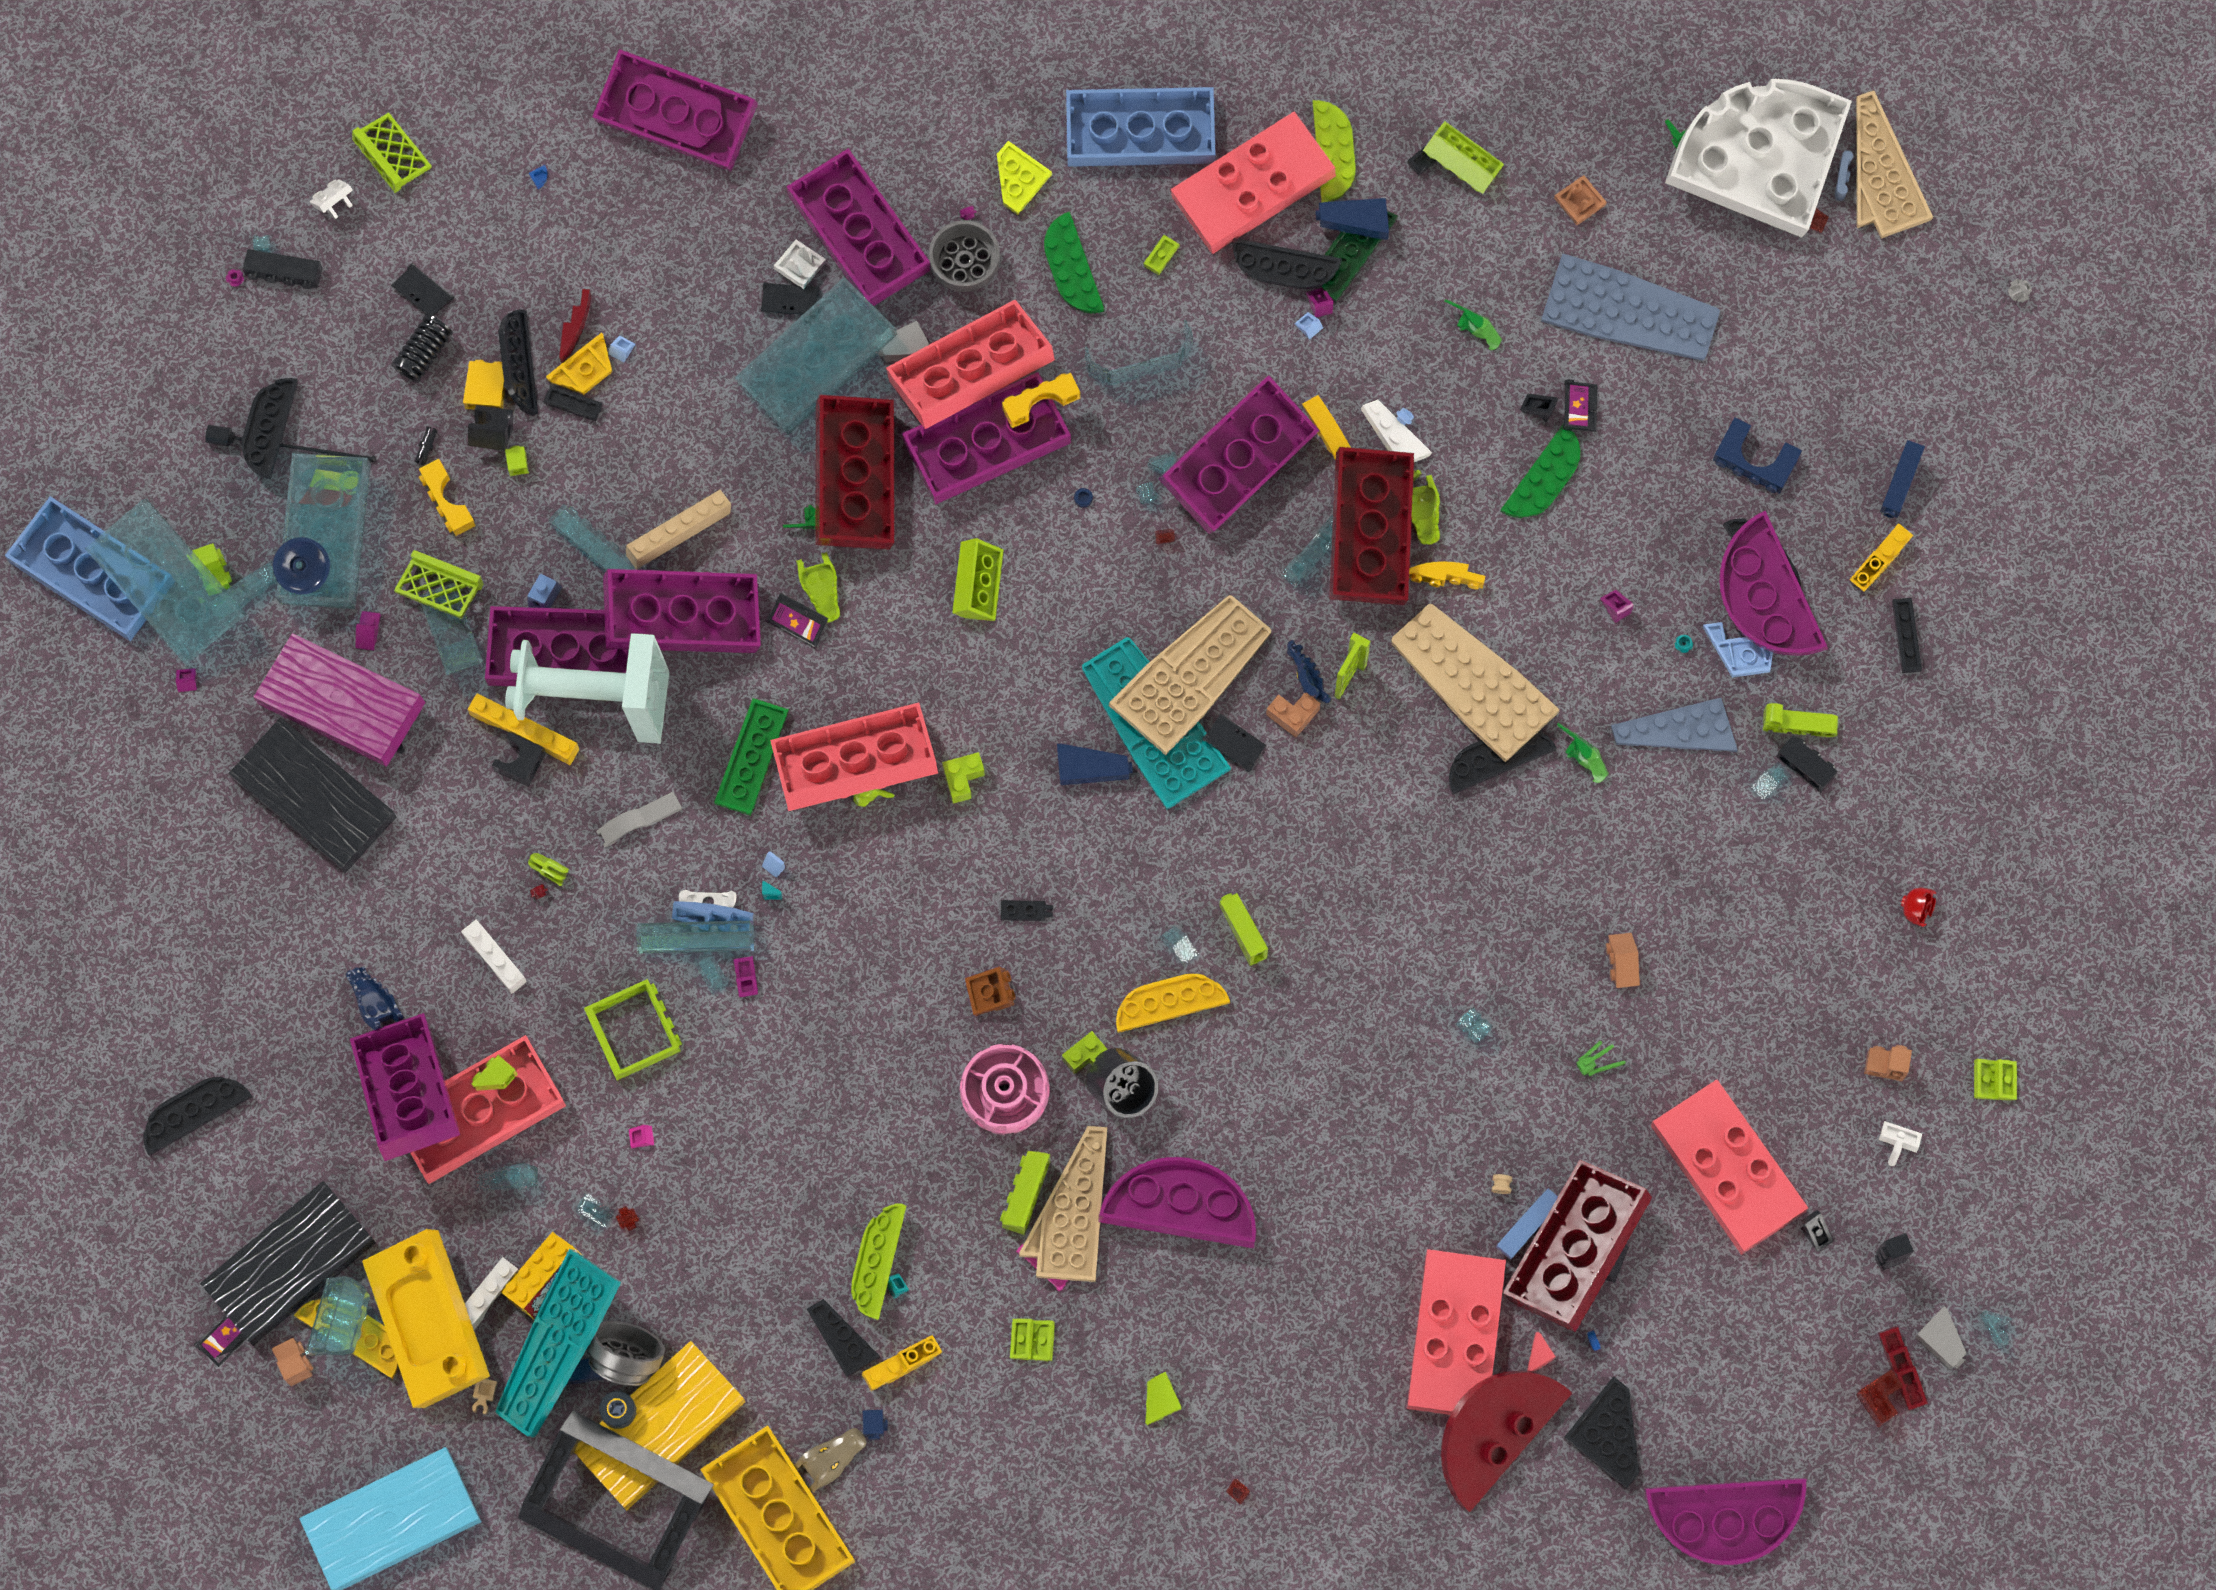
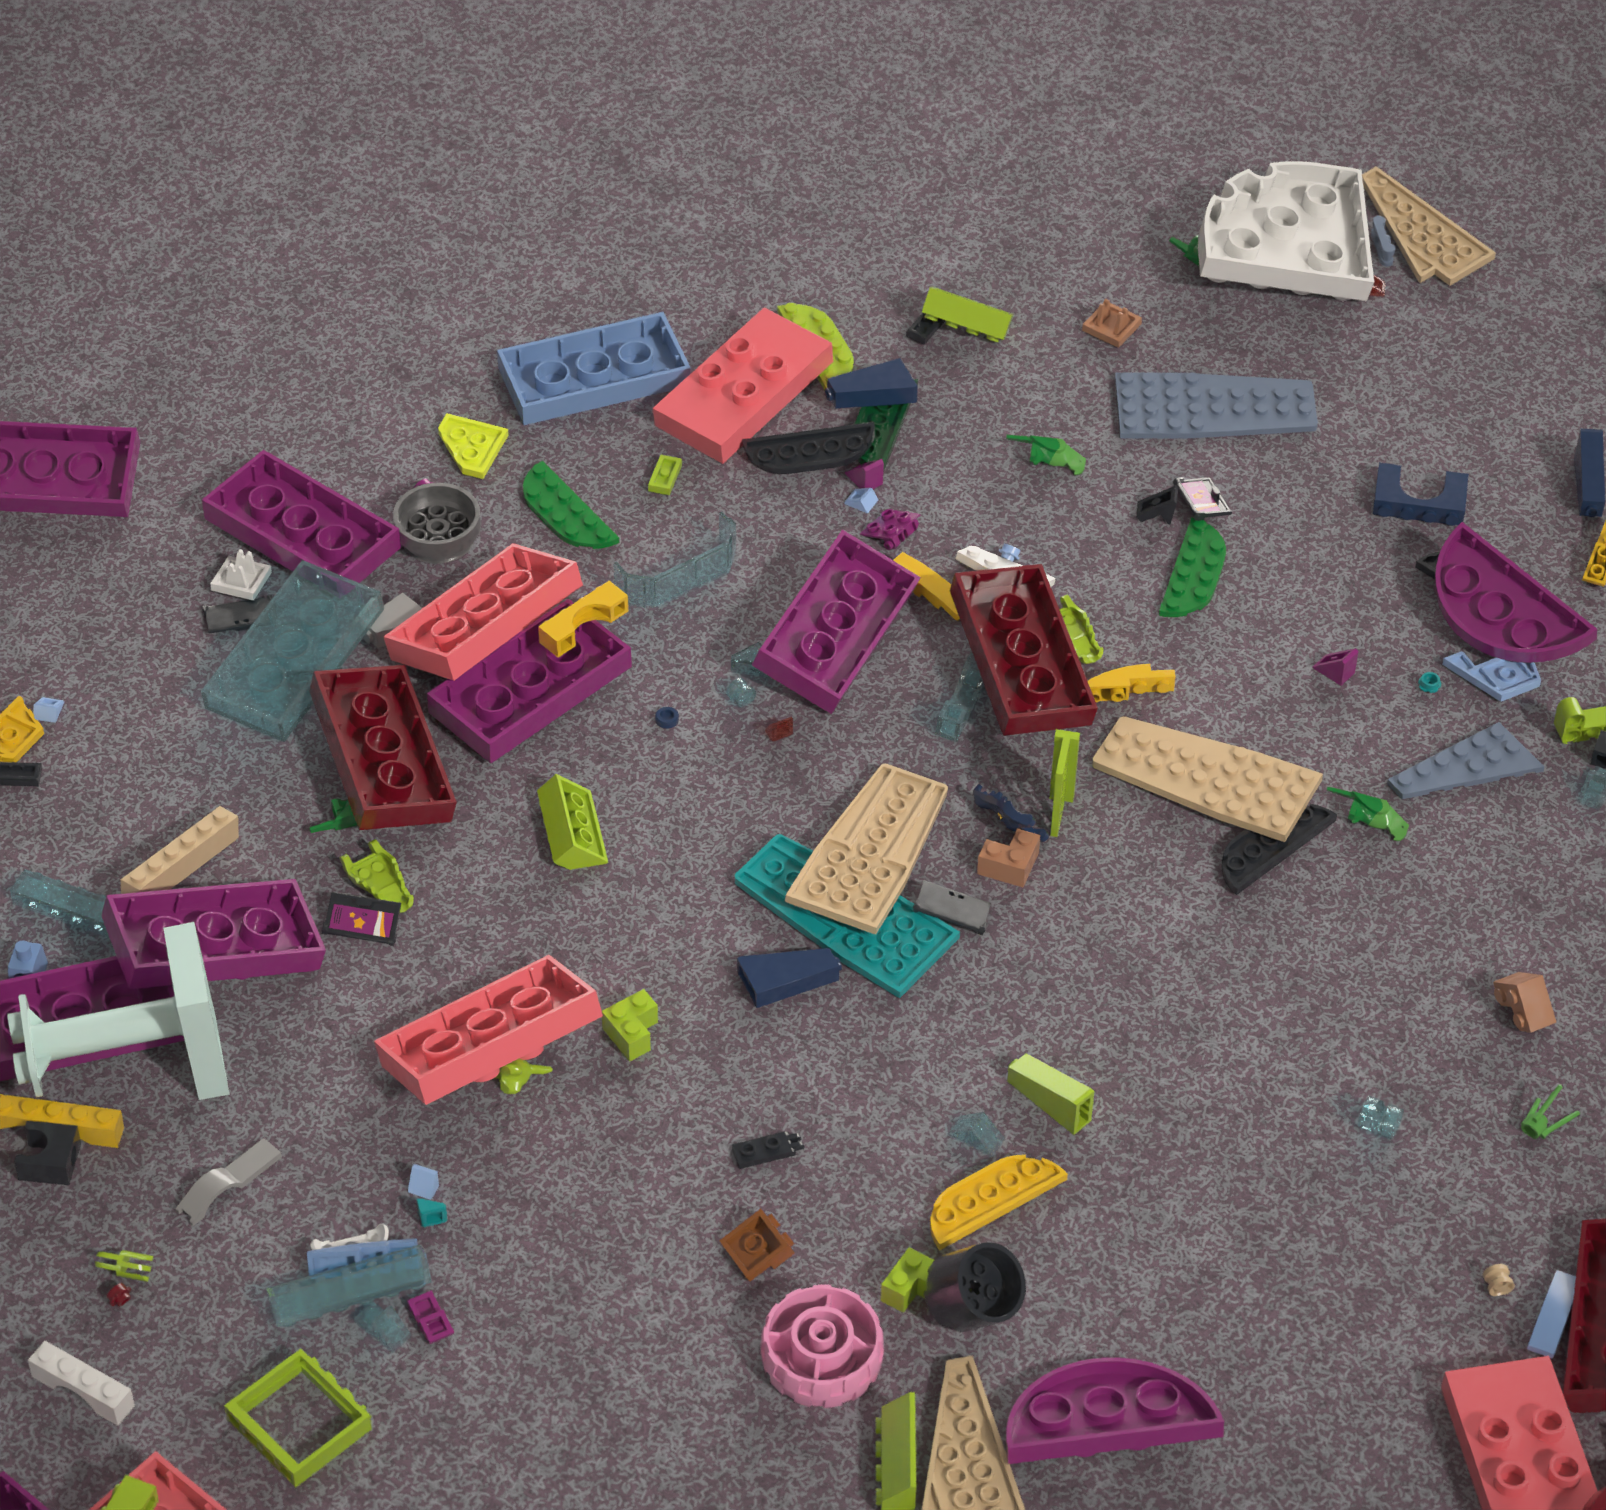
camera: 20 degrees left, 25 degrees down
(751, 757) = (353, 1076): green plate -> none
(1320, 361) = (892, 527): none -> magenta hinge

